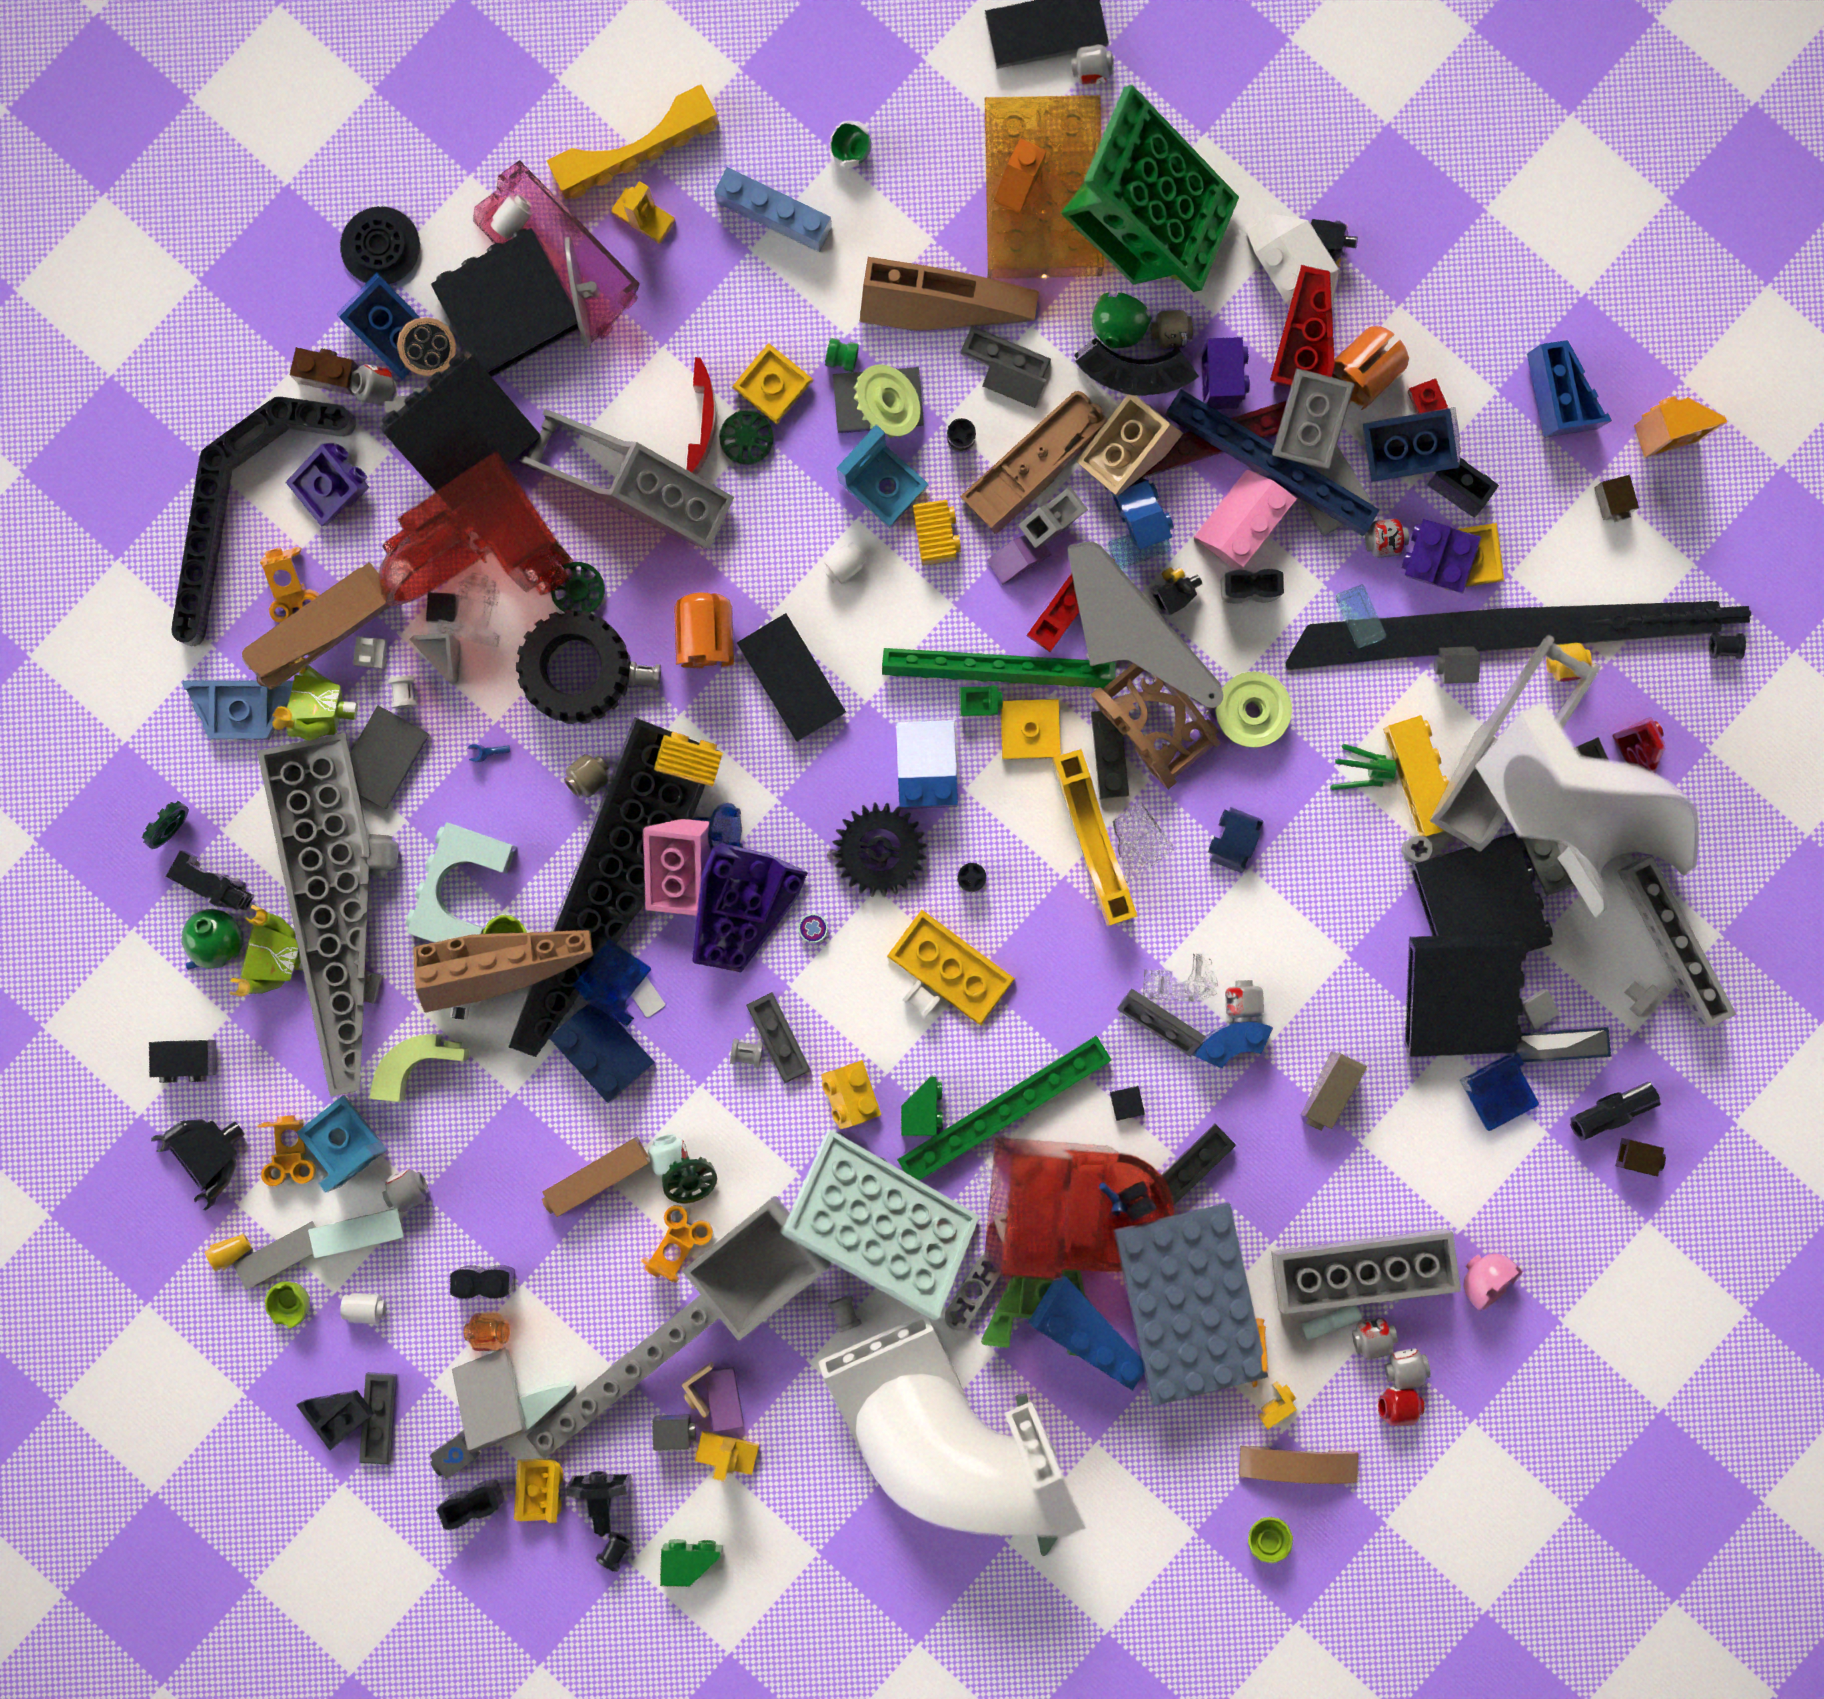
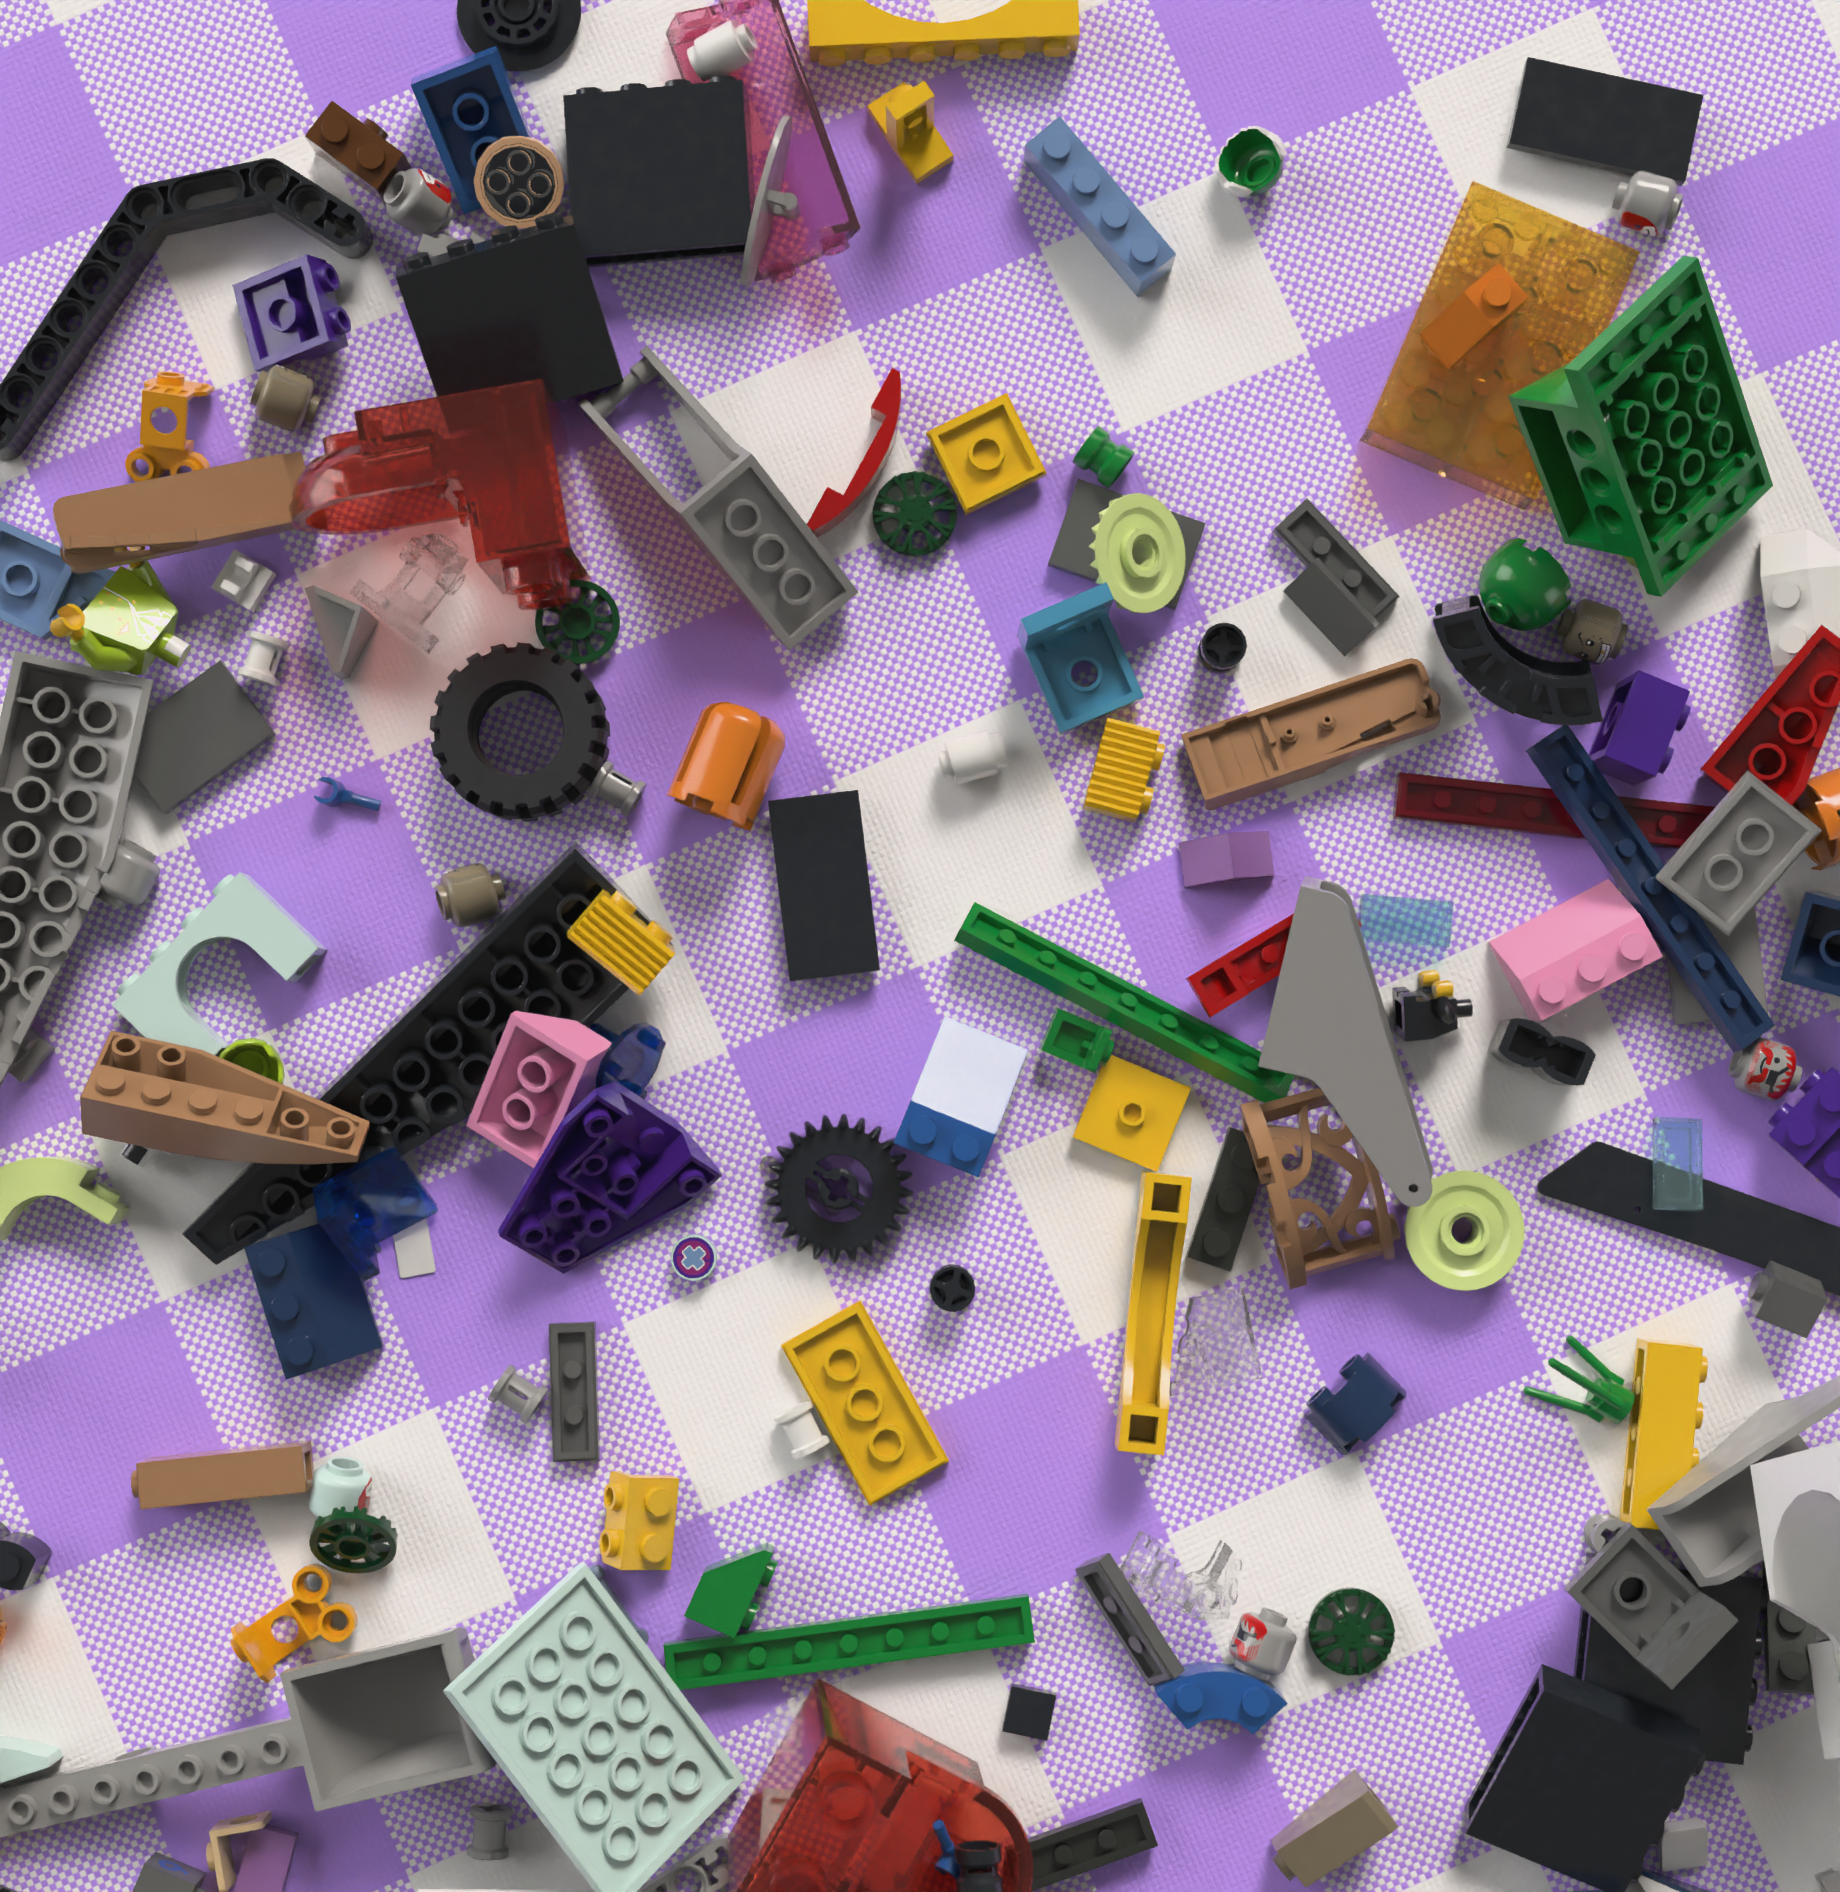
camera: 20 degrees right, 0 degrees up
(346, 534) = (284, 398): none -> dark tan head
(441, 607) = (373, 562): black tile -> none
(939, 298) = (1278, 439): medium nougat wedge -> none
(1053, 519) = (1300, 826): light grey brick -> none
(1128, 444) = (1455, 770): tan slope -> none
(1143, 514) = (1431, 877): blue brick -> none
(1293, 972) = (1351, 1631): none -> dark green wheel
(1469, 879) = (1670, 1621): none -> dark grey bracket

